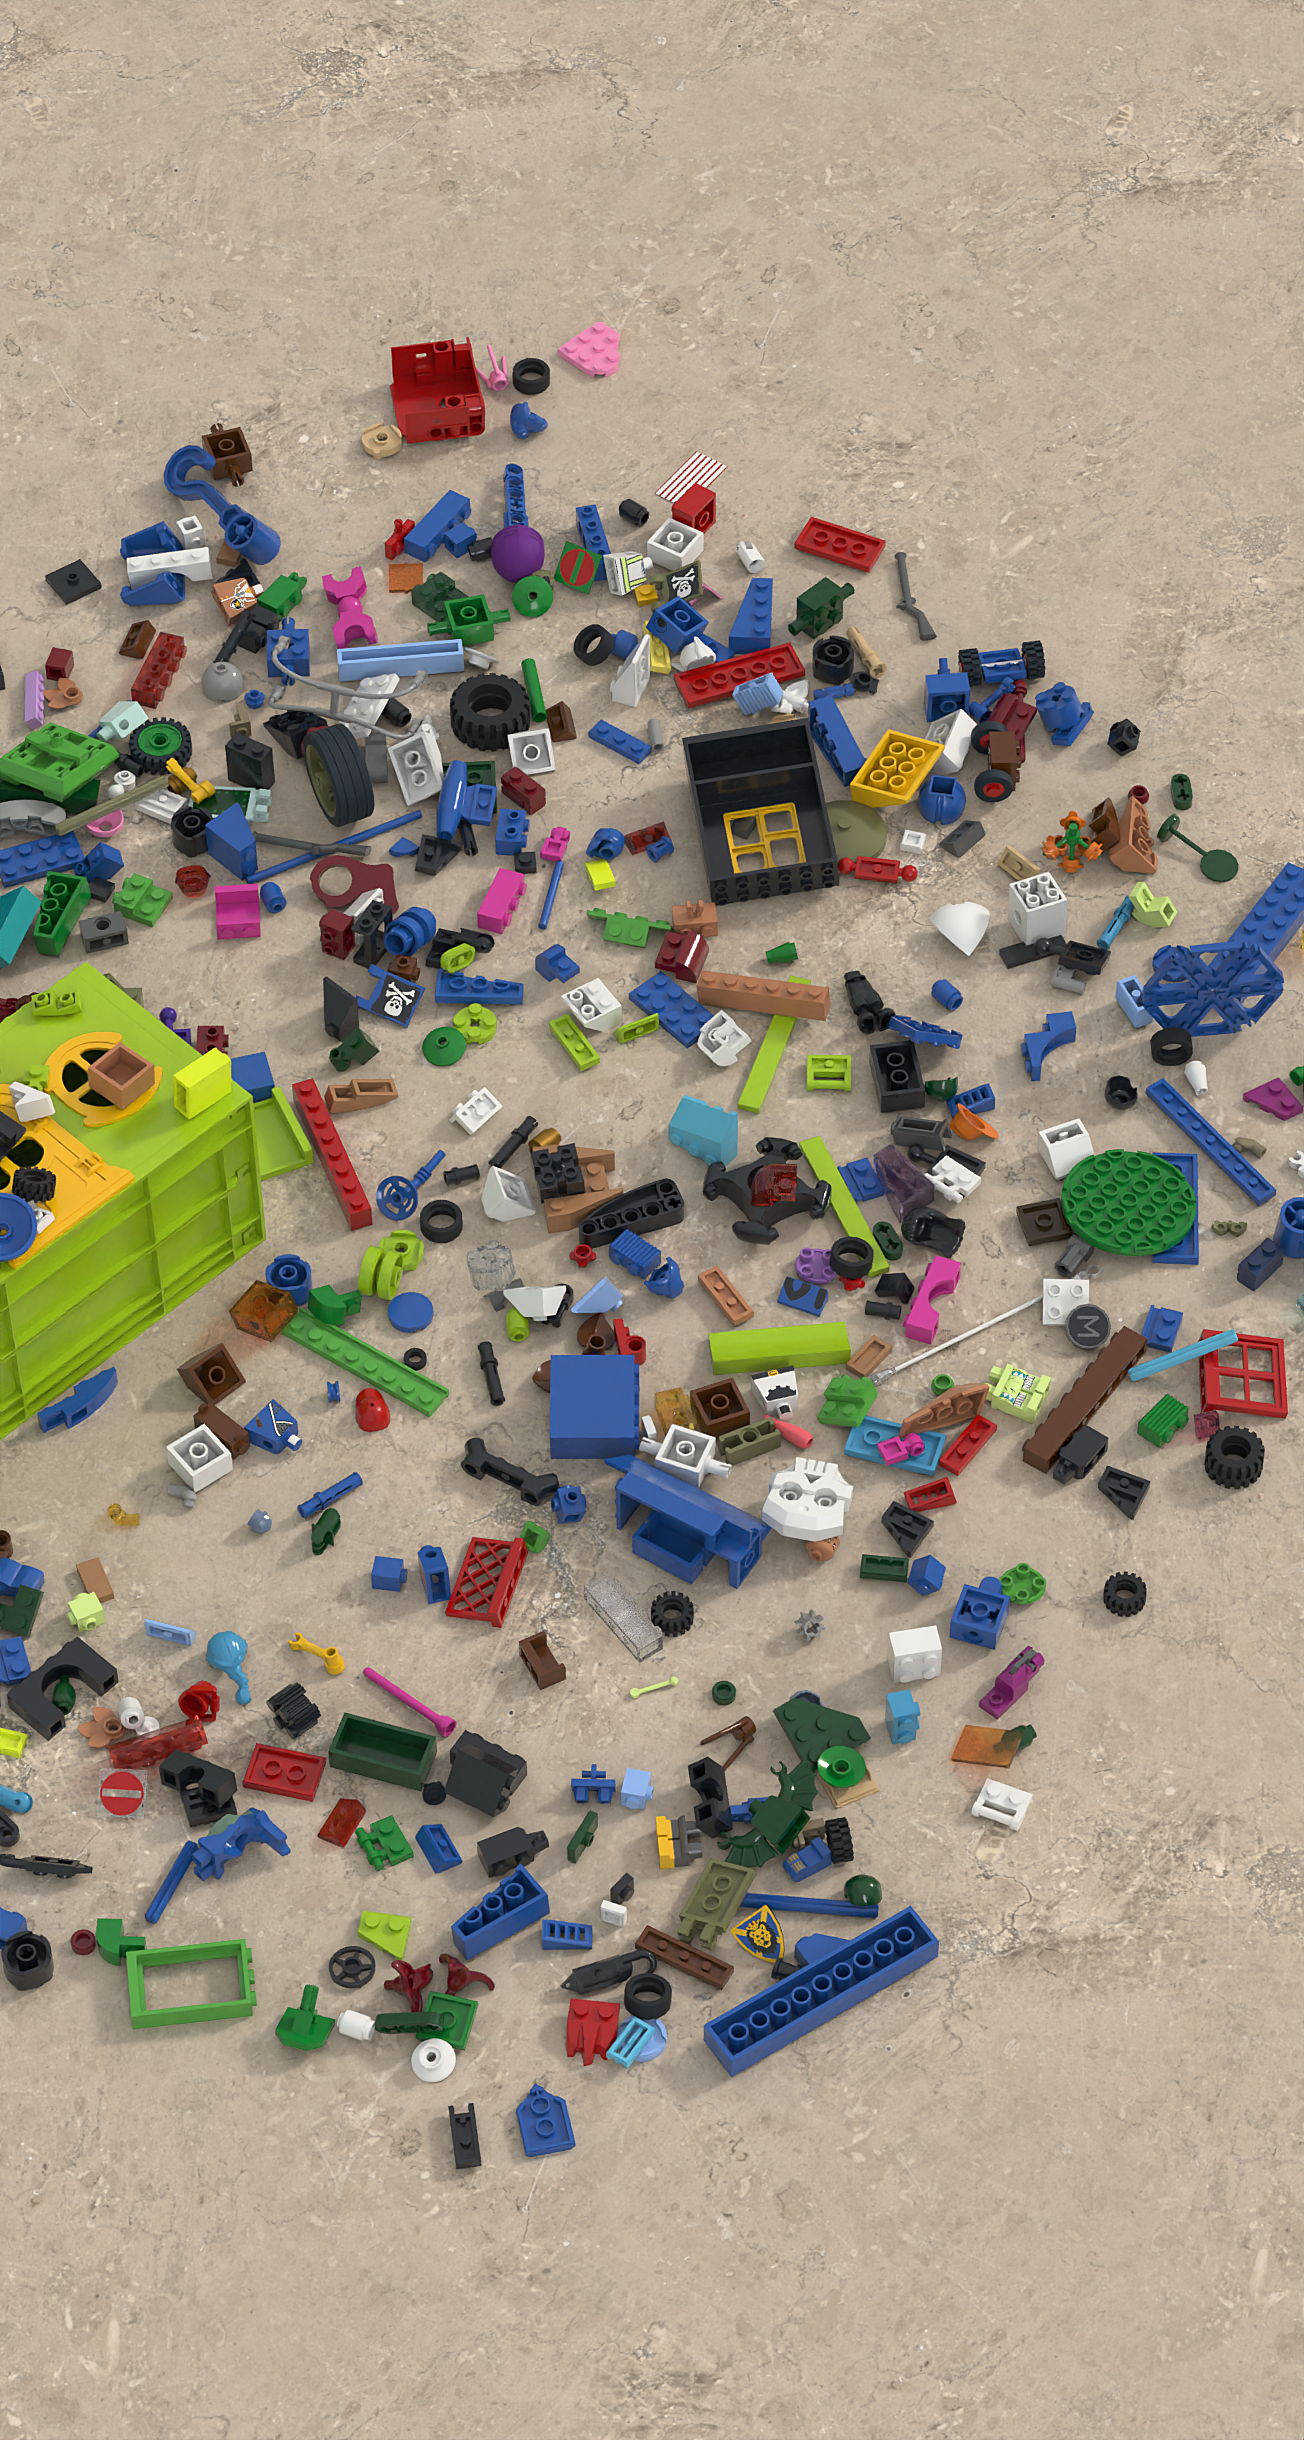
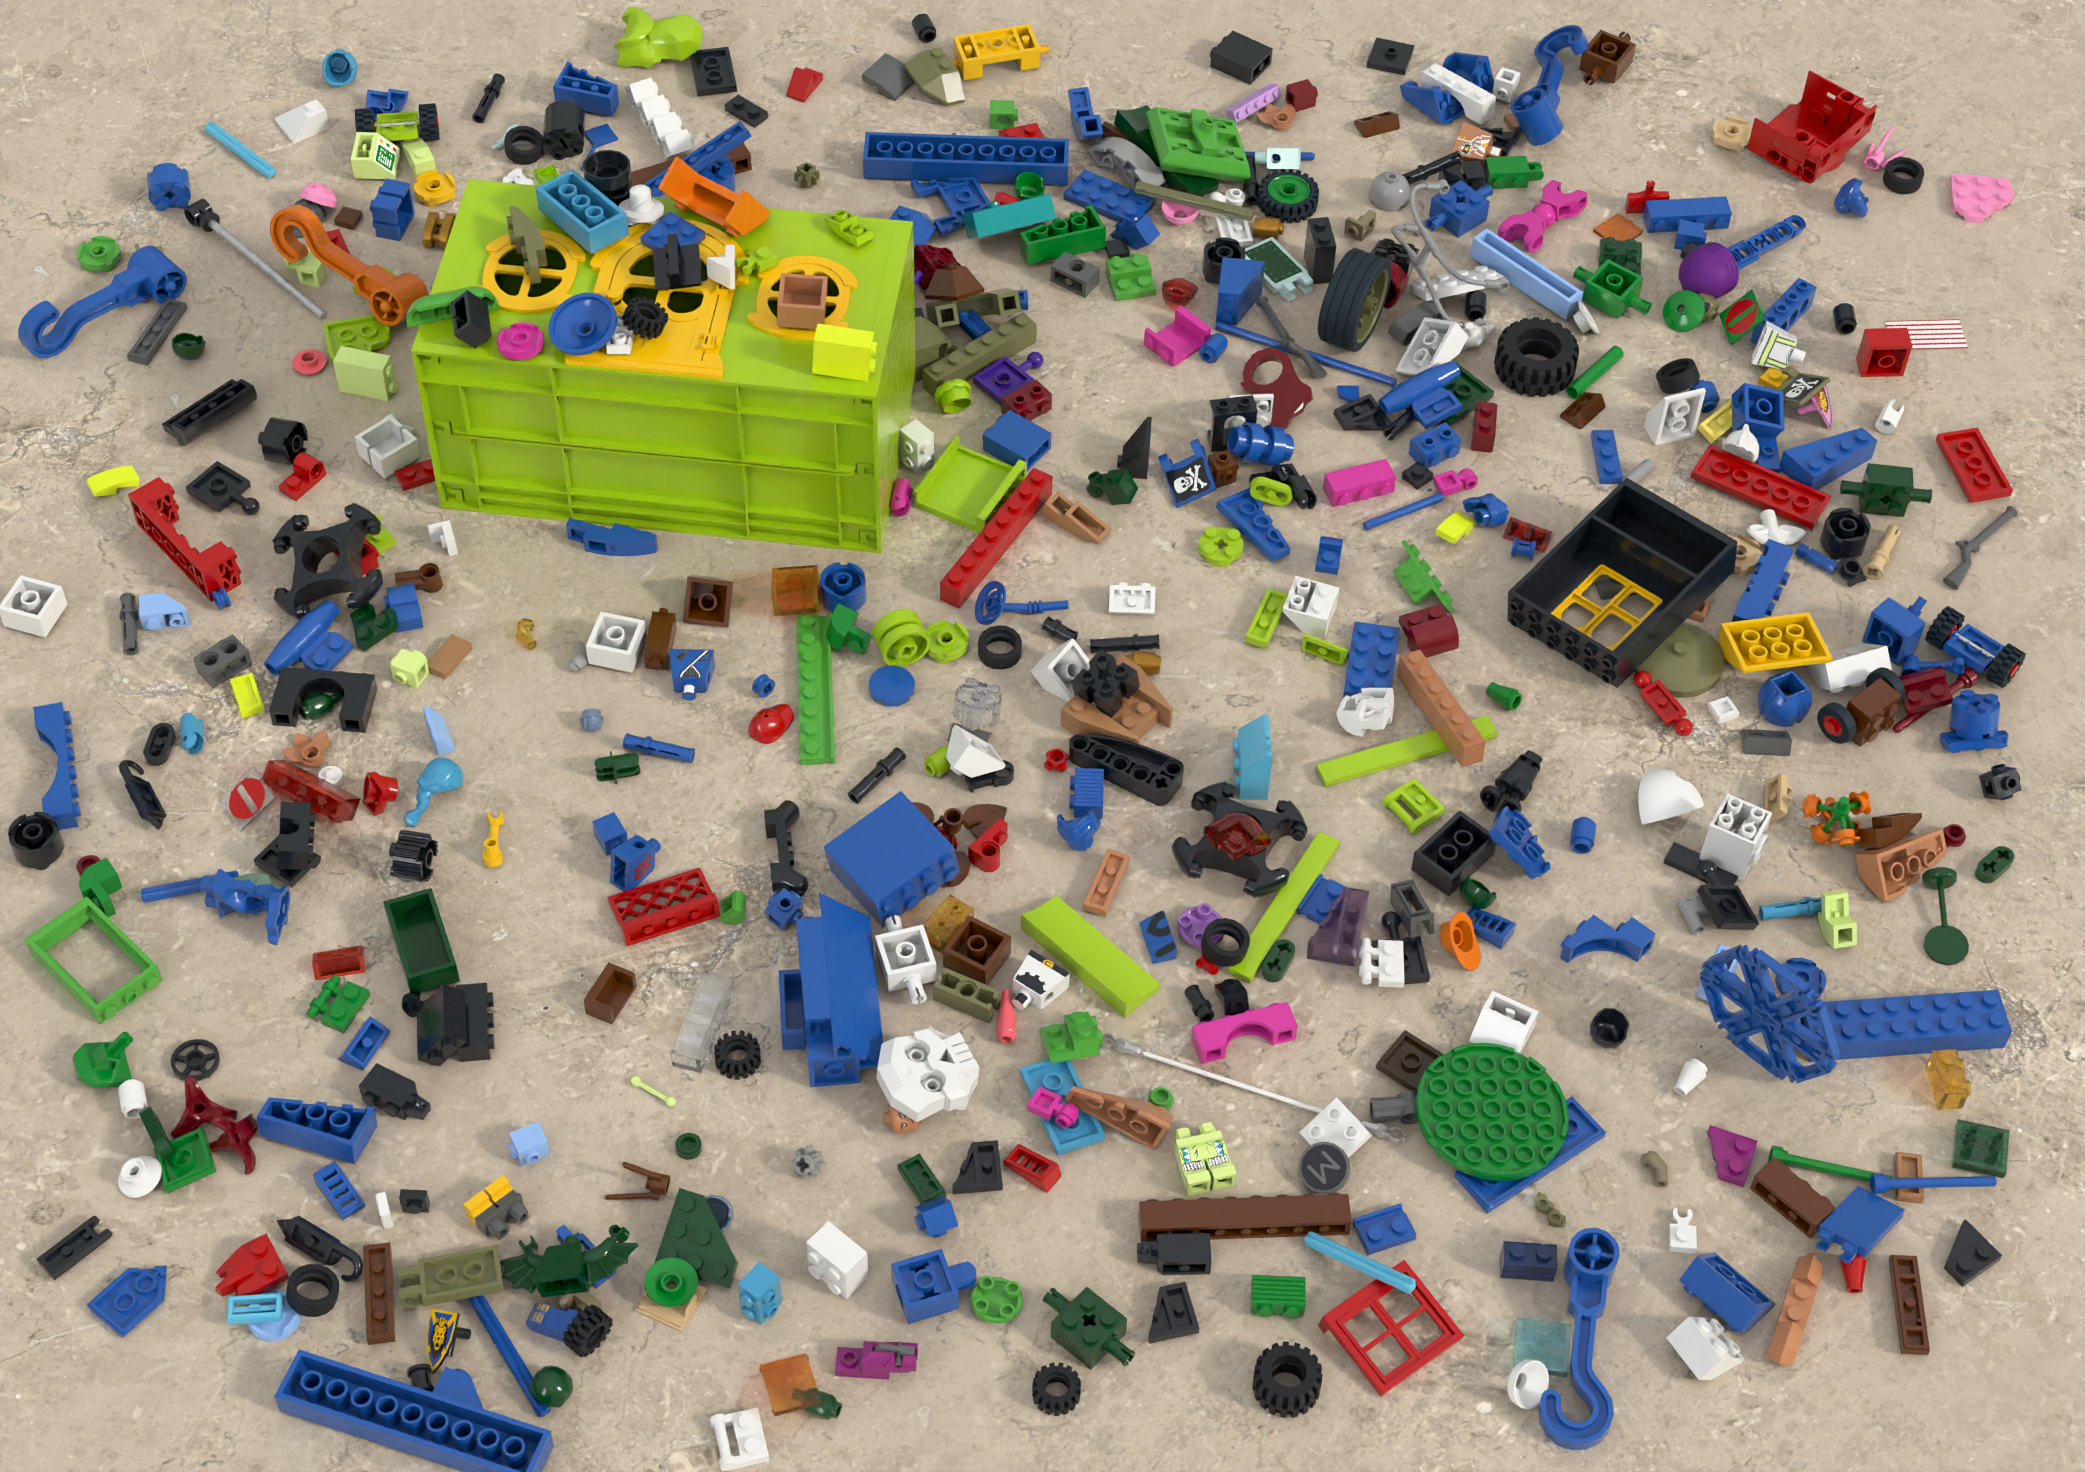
camera: 50 degrees right, 0 degrees up
(130, 1713) = (331, 754): white brick -> none
(158, 670) = (1358, 149): clear red brick -> none
(200, 791) = (1266, 242): yellow brick -> none
(254, 699) = (1395, 218): blue plate -> none
(284, 1772) = (357, 892): red tile -> none
(336, 934) = (1208, 391): dark red brick -> none
(386, 1932) = (247, 1062): lime wing -> none
(415, 1352) = (848, 725): black piece -> none
(444, 1724) = (490, 967): dark pink piece -> none
(447, 1053) = (1178, 540): green dish -> none
(532, 751) = (1528, 407): white slope -> none
(583, 1837) = (448, 1137): dark green plate -> none
(599, 1298) = (1012, 794): light blue slope -> none
(604, 1787) = (500, 1105): blue hips -> none
(648, 1428) = (913, 916): white tile -> none
(675, 545) = (1840, 361): white brick -> none
(695, 917) = (1474, 616): nougat brick -> none
(710, 1782) = (576, 1193): black arch -> none
(758, 694) = (1748, 507): light blue brick -> none
(868, 1357) = (1141, 1026): medium nougat tile -> none
(933, 1230) = (1314, 980): black piece -> none
(967, 1445) = (1111, 1159): red plate -> none
(1095, 1543) = (1088, 1327): none -> dark green brick
(1174, 1056) = (1697, 1033): black tyre -> none
(1206, 1424) = (1306, 1333): clear pink tile -> none
(1210, 1141) = (1629, 1135): blue plate -> none

